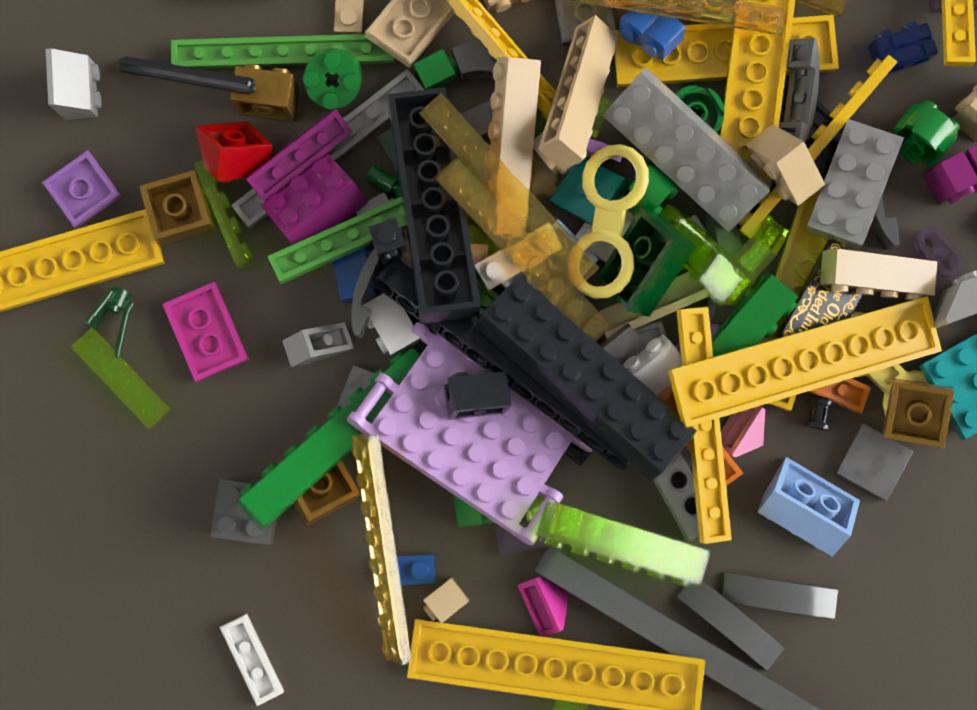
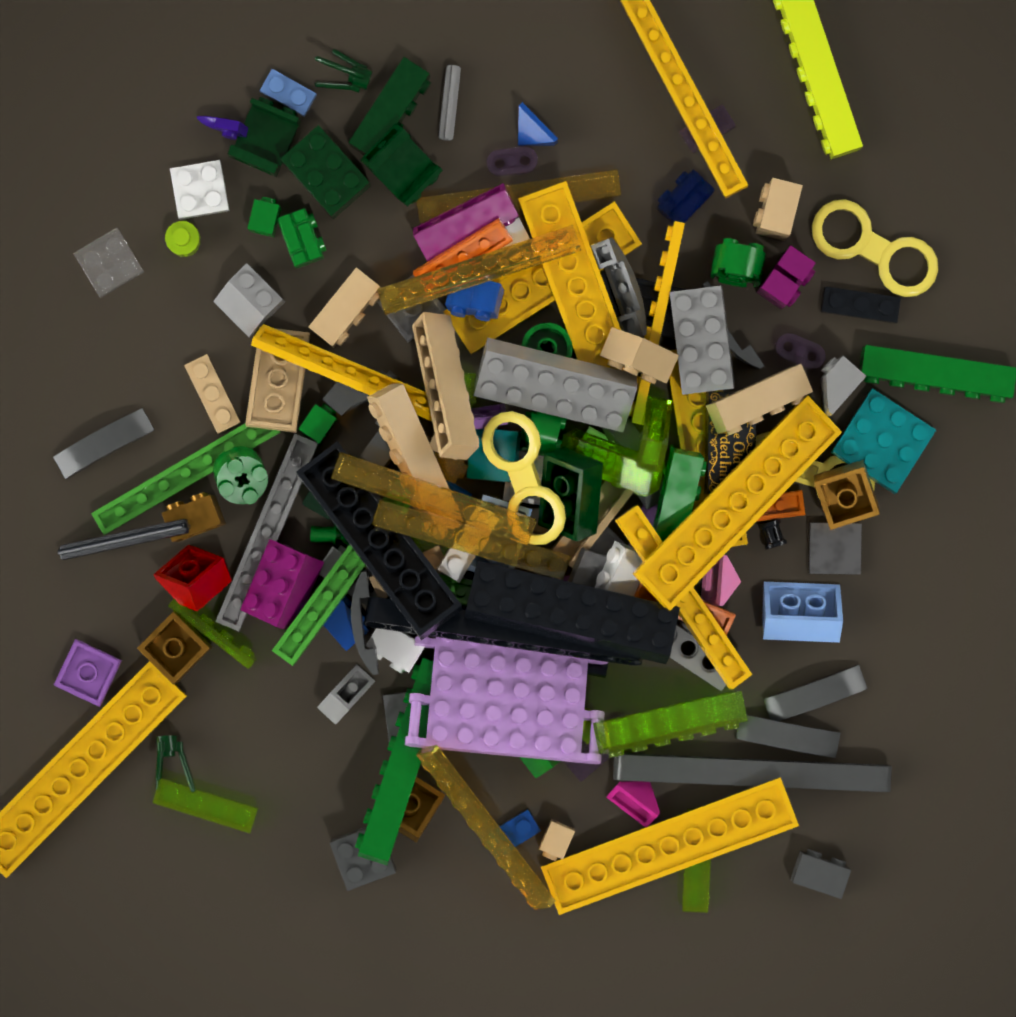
camera: 25 degrees left, 5 degrees up
(72, 84) = (35, 593): slope -> none
(205, 332) = (251, 732): dark pink plate -> none
(251, 659) = (430, 966): white tile -> none
(299, 155) = (248, 553): magenta plate -> none
(388, 239) = (360, 589): black brick -> none
(477, 394) = (494, 670): black brick -> none

